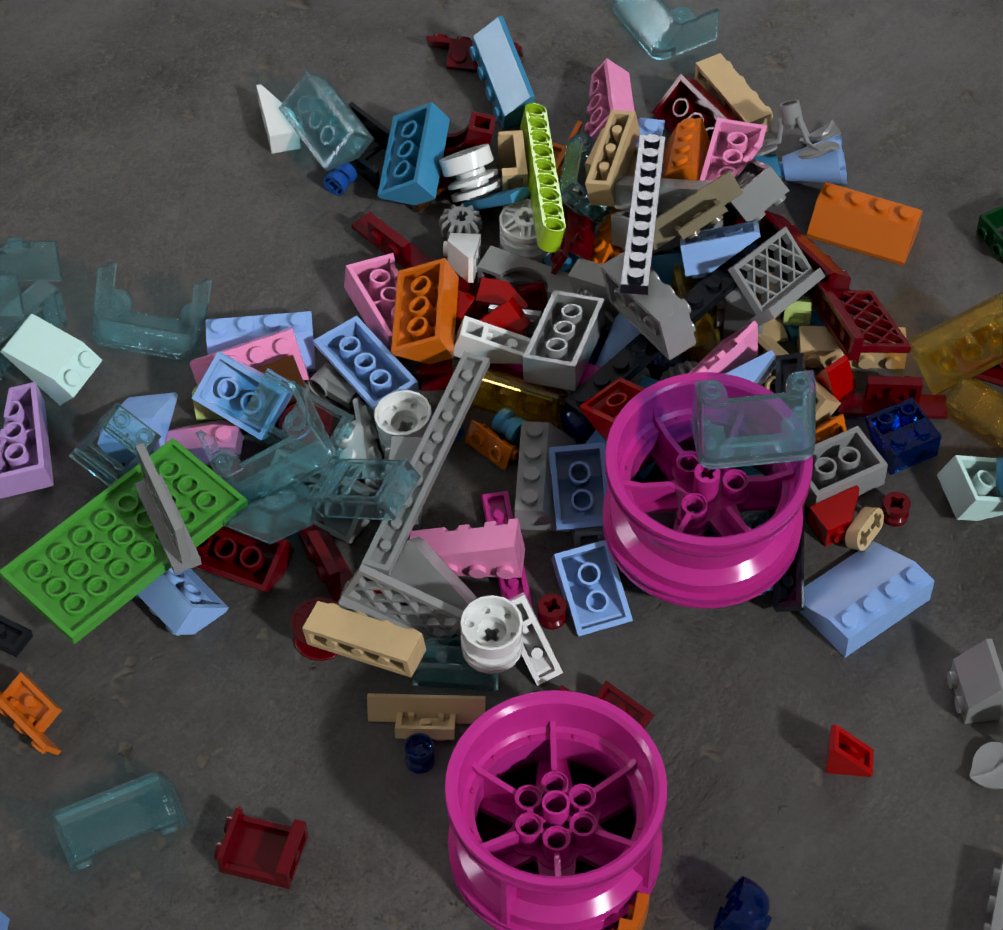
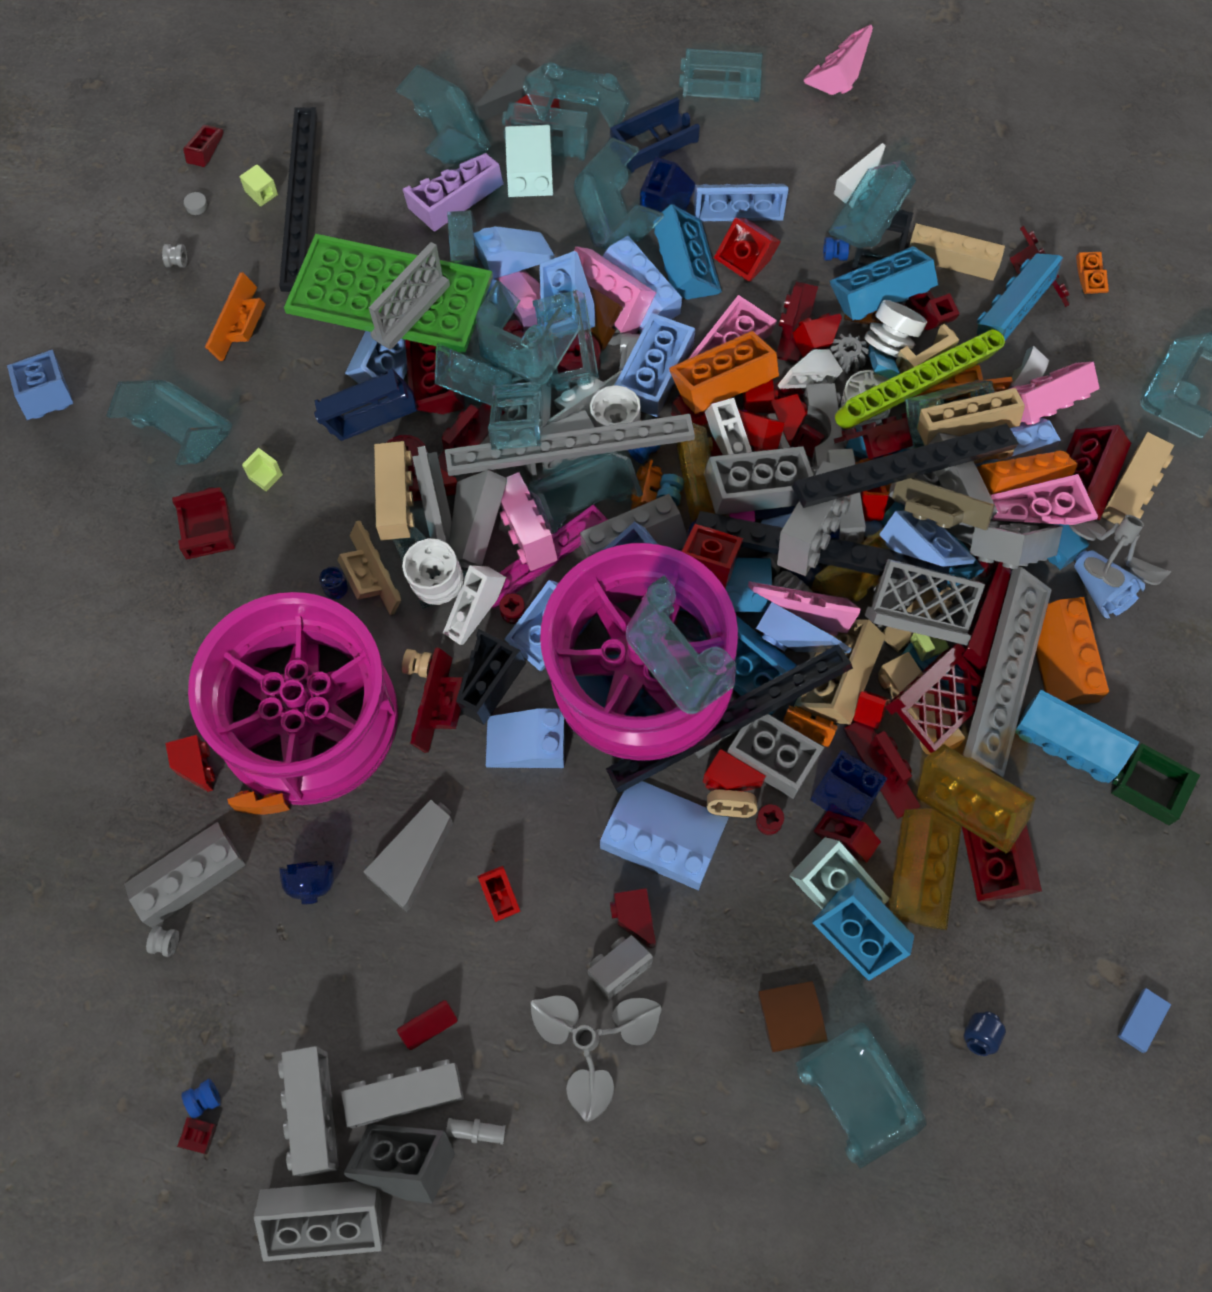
camera: 60 degrees right, 15 degrees up
(71, 143) = (744, 62): none -> clear light blue door
(89, 232) = (675, 124): none -> dark blue door
(133, 73) = (842, 65): none -> bright pink wedge
(167, 270) = (665, 186): none -> clear blue slope
(230, 220) = (746, 201): none -> light blue slope
(237, 762) = (262, 469): none -> yellowish green panel
(241, 624) = (396, 405): none -> dark blue door
(255, 291) = (686, 254): none -> dark azure slope
(287, 243) = (746, 248): none -> red slope
(426, 234) = (816, 333): none -> red slope
(427, 85) = (958, 251): none -> tan brick
(456, 488) = (583, 485): none -> clear light blue windscreen
(515, 20) = (1091, 272): none -> orange slope
(574, 106) = (1033, 366): none -> light grey slope
(614, 656) = (489, 676): none -> black wedge
(701, 660) = (526, 739): none -> light blue slope
(768, 813) = (408, 858): none -> light grey slope
(857, 263) = (1007, 672): none -> light grey plate
(931, 653) = (634, 915): none -> dark red slope
(939, 454) = (852, 833): none -> dark red slope
(946, 255) = (1075, 737): none -> dark azure slope
(947, 875) = (427, 1025): none -> dark red slope

